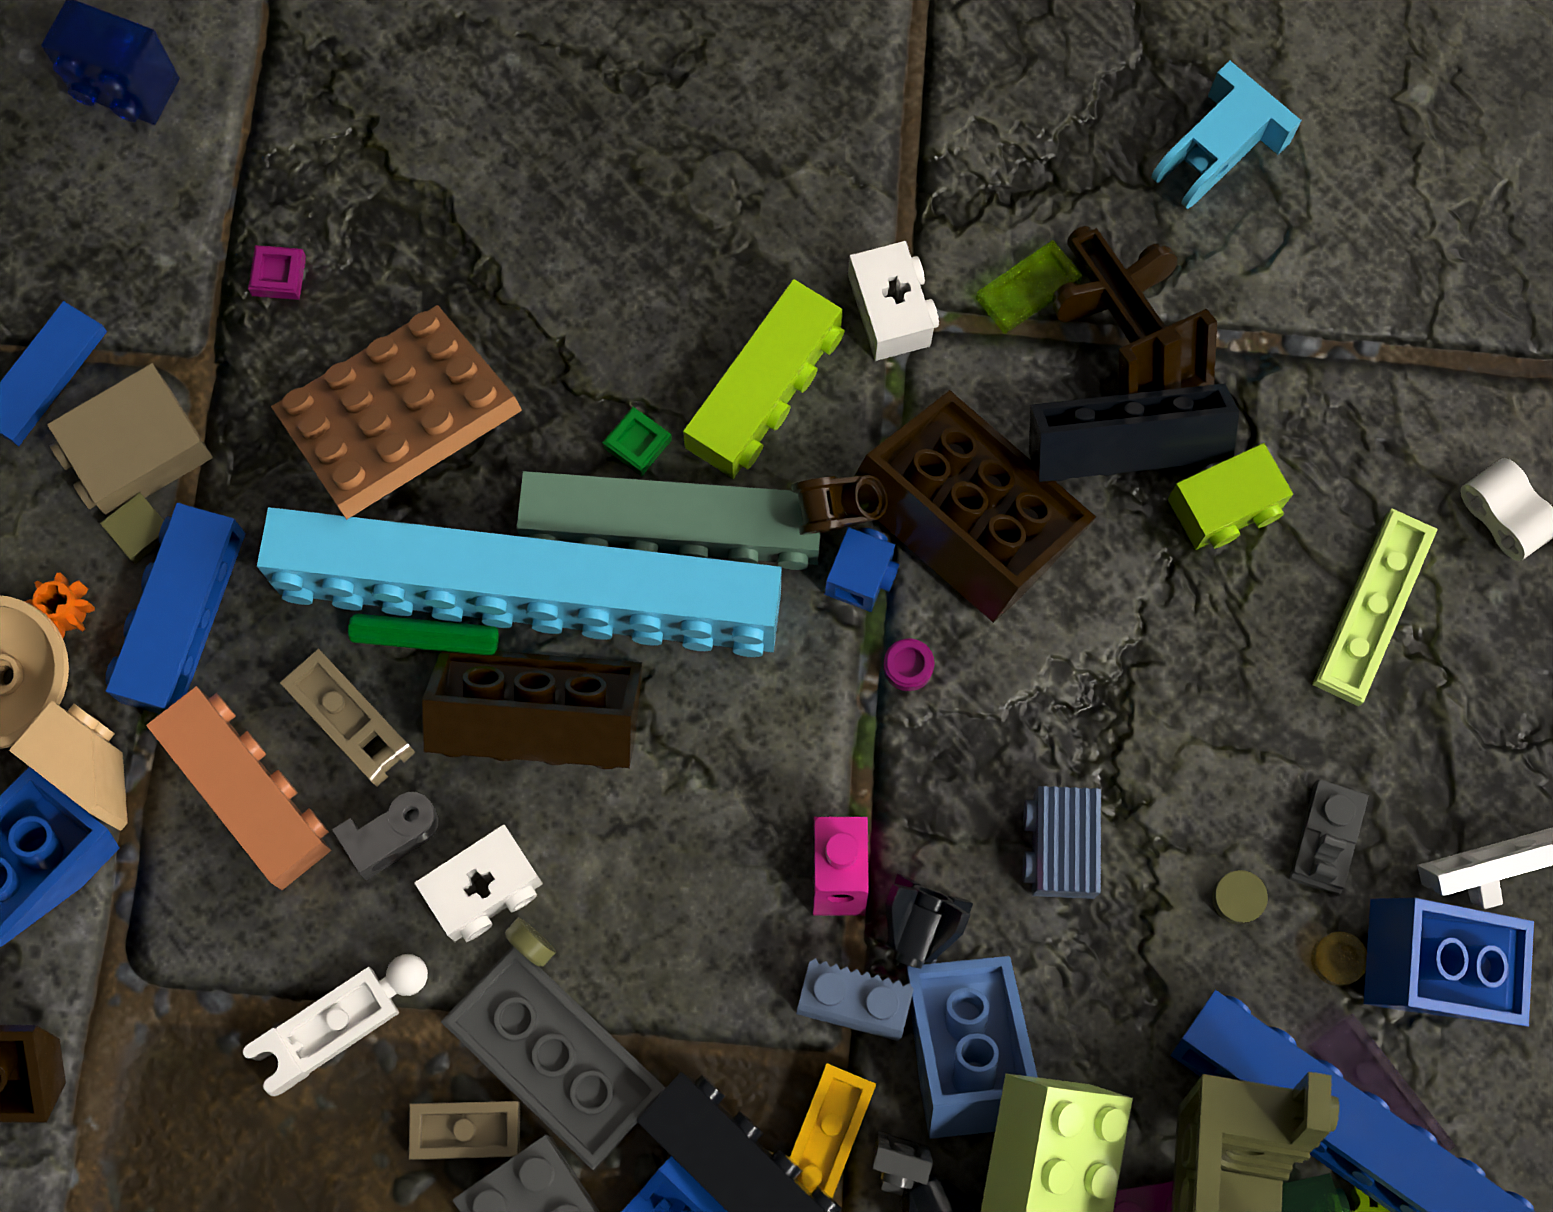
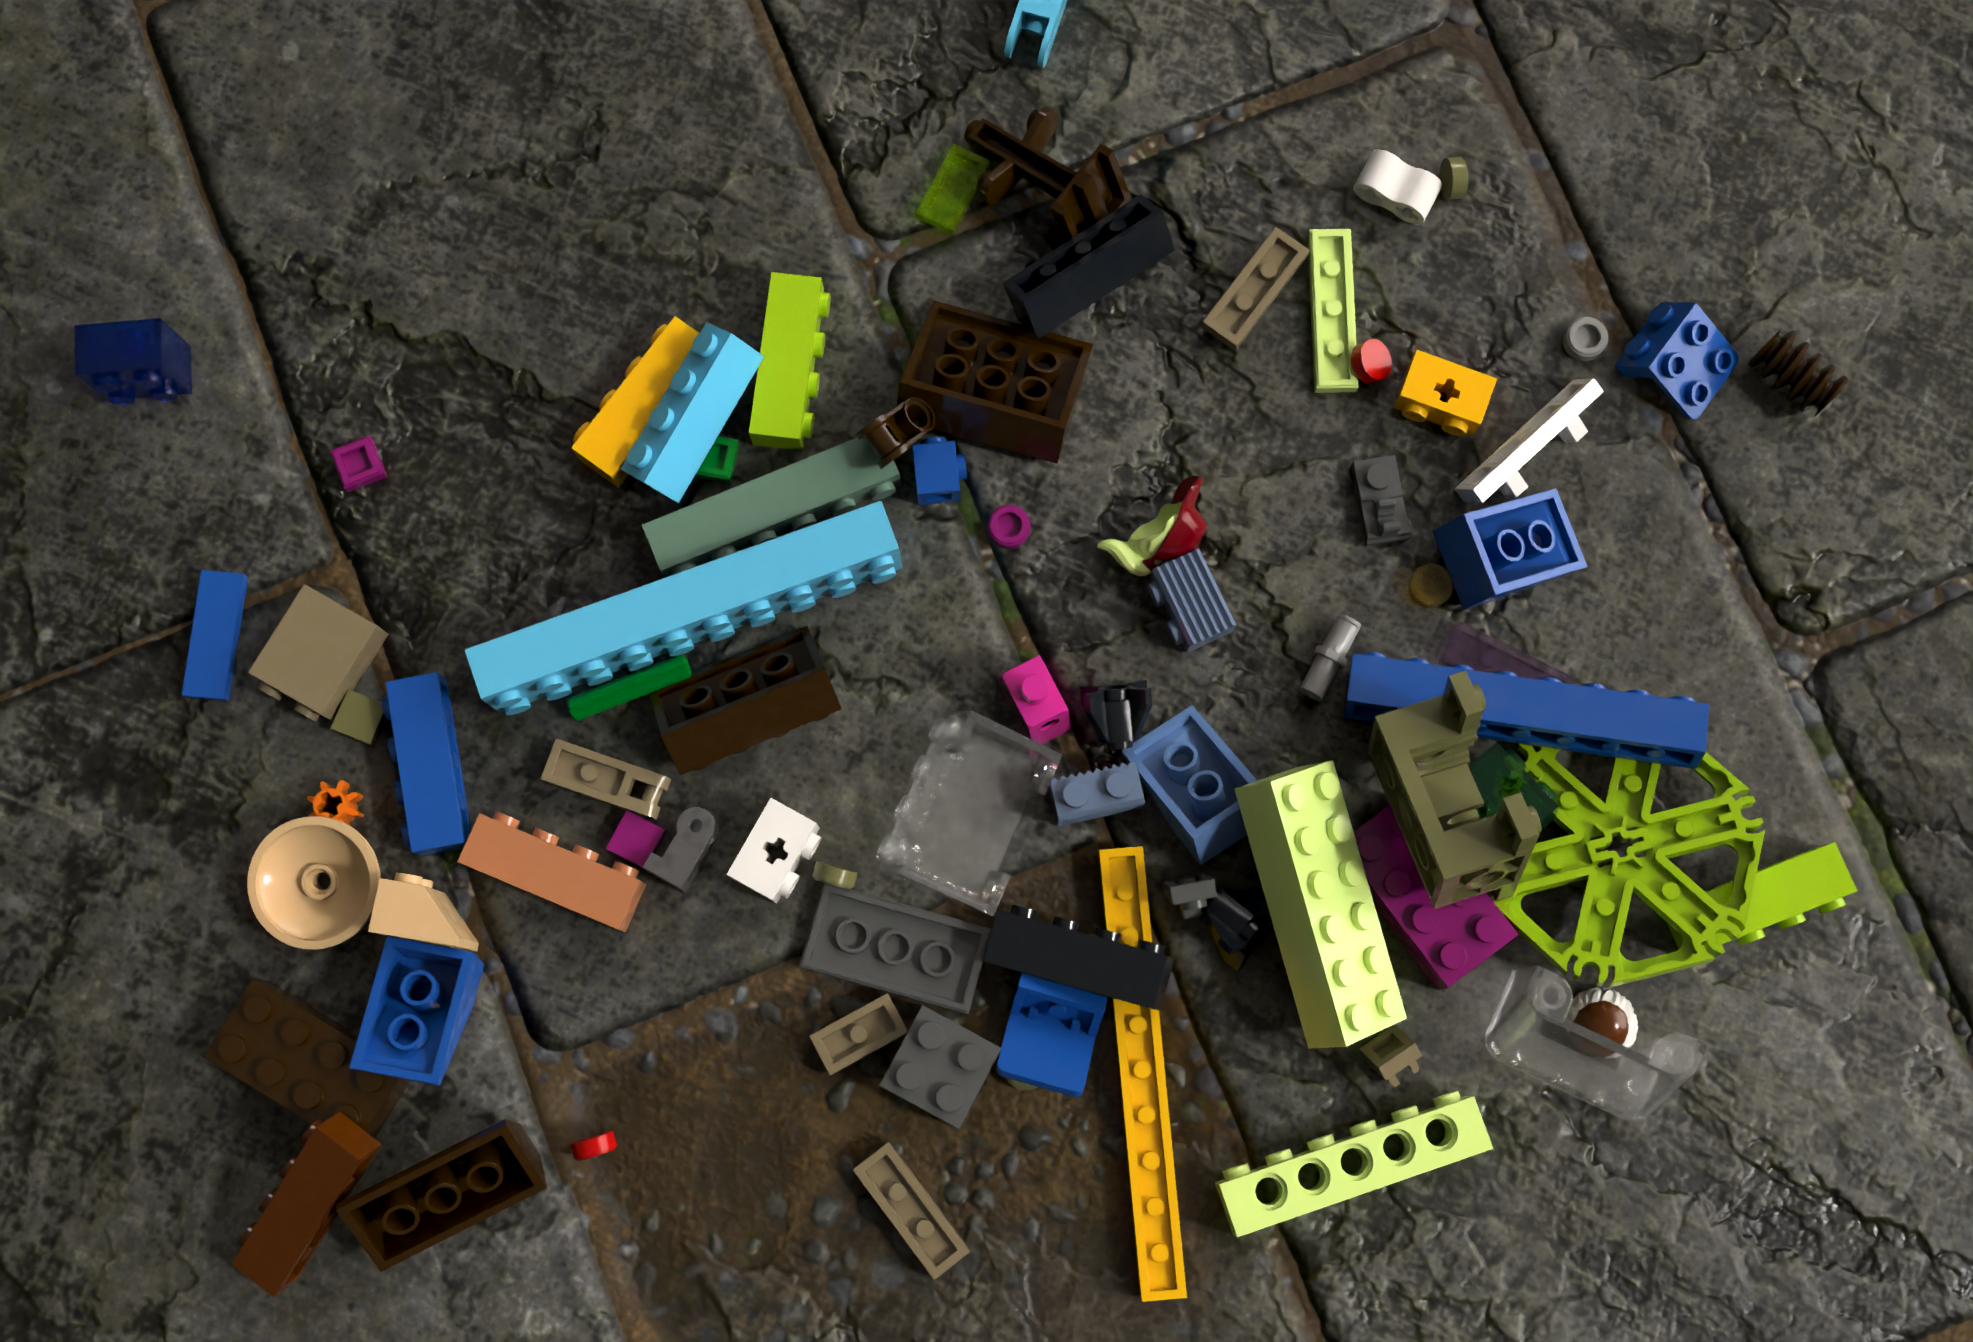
camera: 25 degrees left, 5 degrees up
(122, 1102) = (593, 1145): none -> red tile
(335, 1022) = (721, 1005): white plate -> none
(345, 796) = (636, 839): none -> magenta tile
(394, 410) = (517, 526): medium nougat plate -> none
(597, 348) = (626, 411): none -> yellow brick
(636, 381) = (692, 412): none -> medium azure brick
(705, 944) = (965, 808): none -> clear windscreen
(892, 326) = (861, 273): white brick -> none
(1073, 759) = (1165, 538): none -> hair
(1188, 981) = (1330, 657): none -> light grey pin
(1231, 497) = (1186, 280): lime brick -> none
(1239, 897) = (1337, 577): olive tile -> none
(1301, 542) = (1255, 288): none -> dark tan plate
(1391, 681) = (1371, 361): none -> tile
(1482, 763) = (1465, 388): none -> yellow brick

